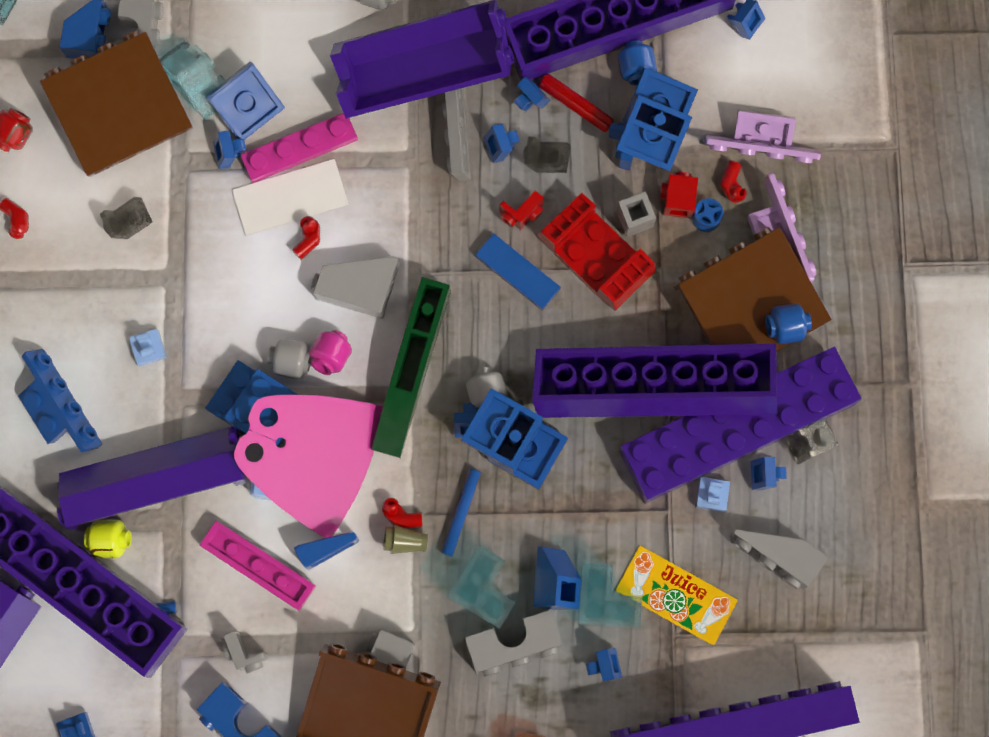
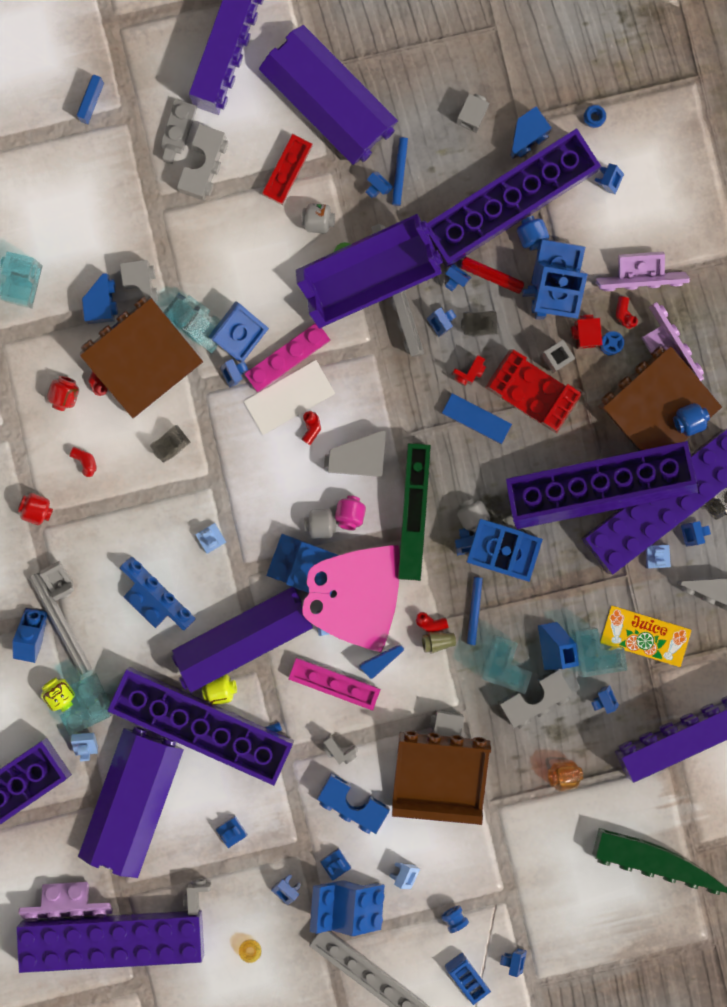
camera: 20 degrees left, 10 degrees up
(55, 130) = (96, 385): none -> red arm

